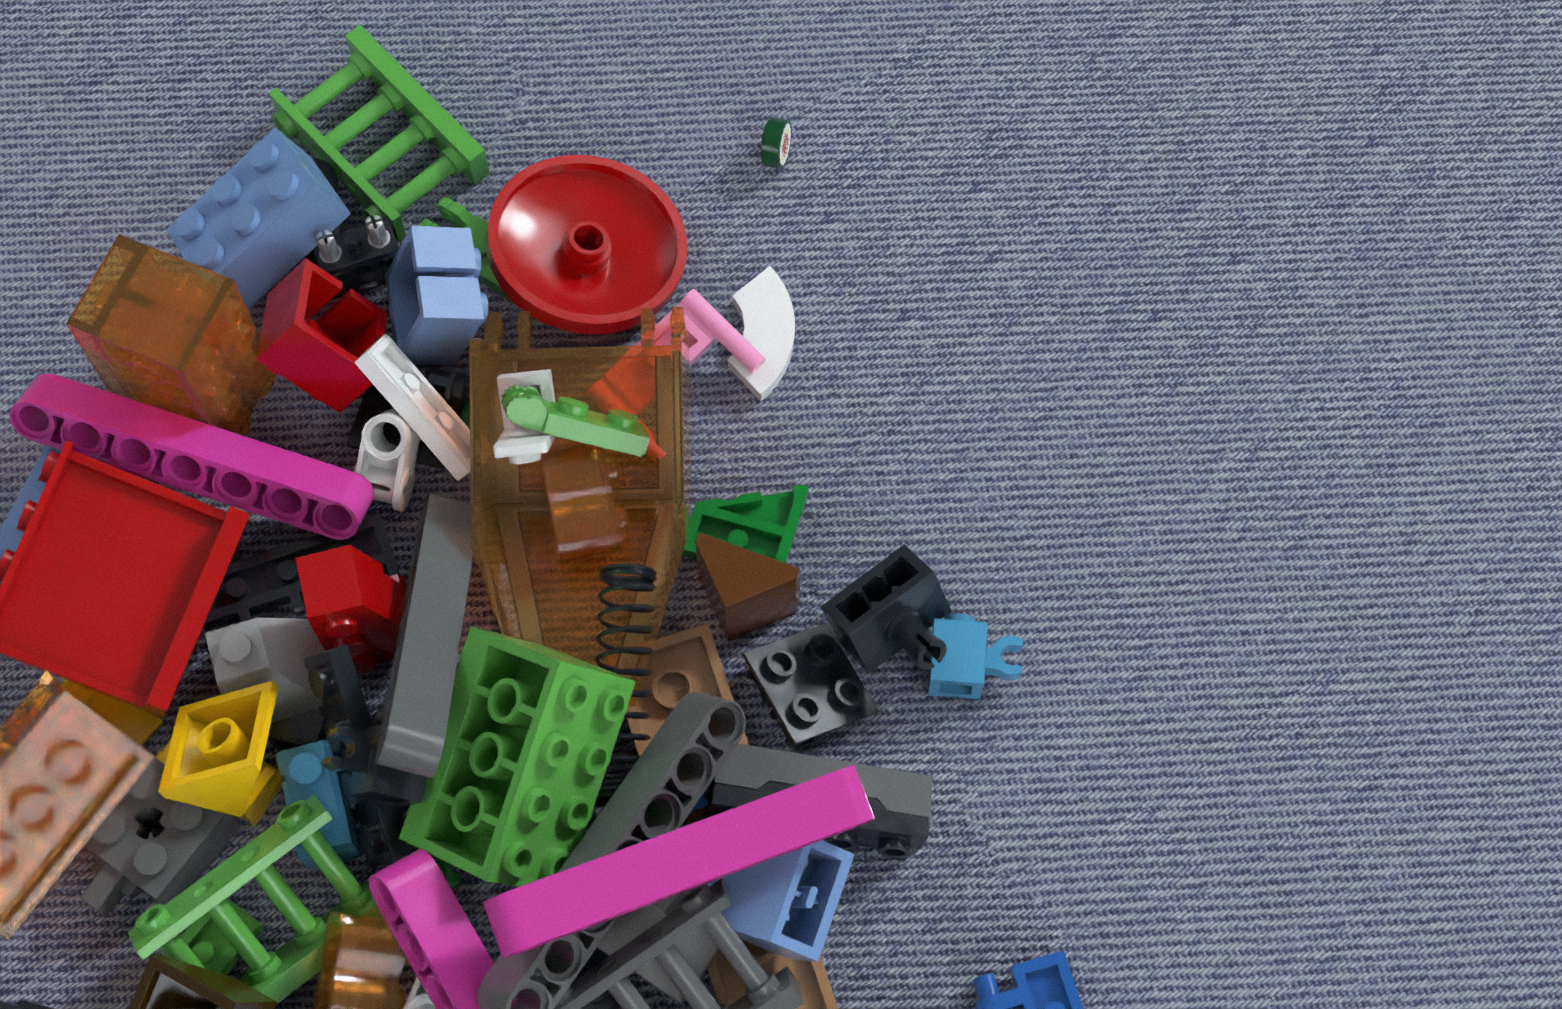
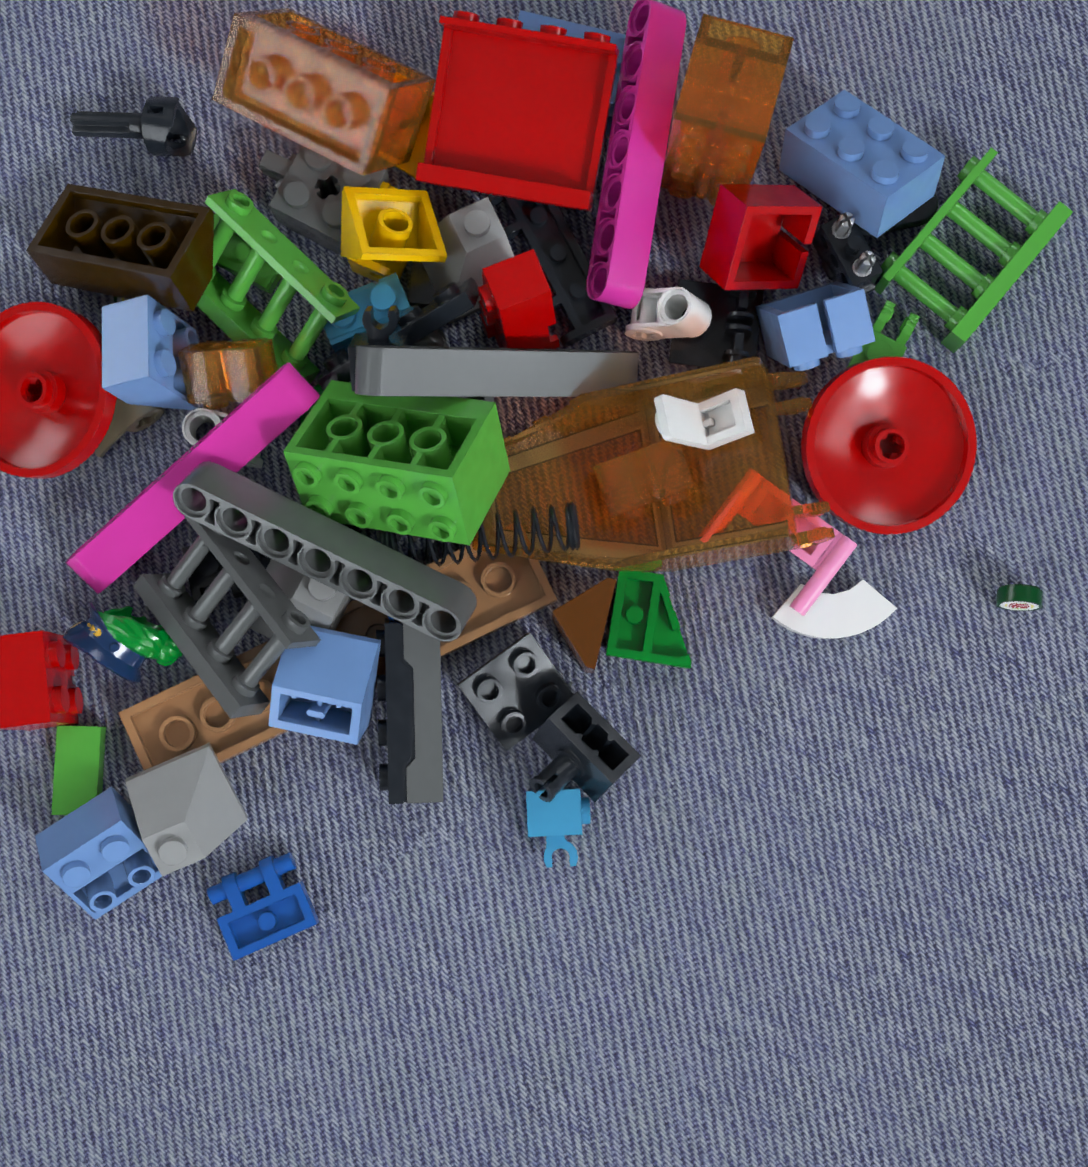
camera: 85 degrees right, 15 degrees up
(418, 404) = (714, 323): white tile -> none
(574, 421) = (706, 460): bright green hinge -> none
(677, 861) = (313, 604): dark pink beam -> none

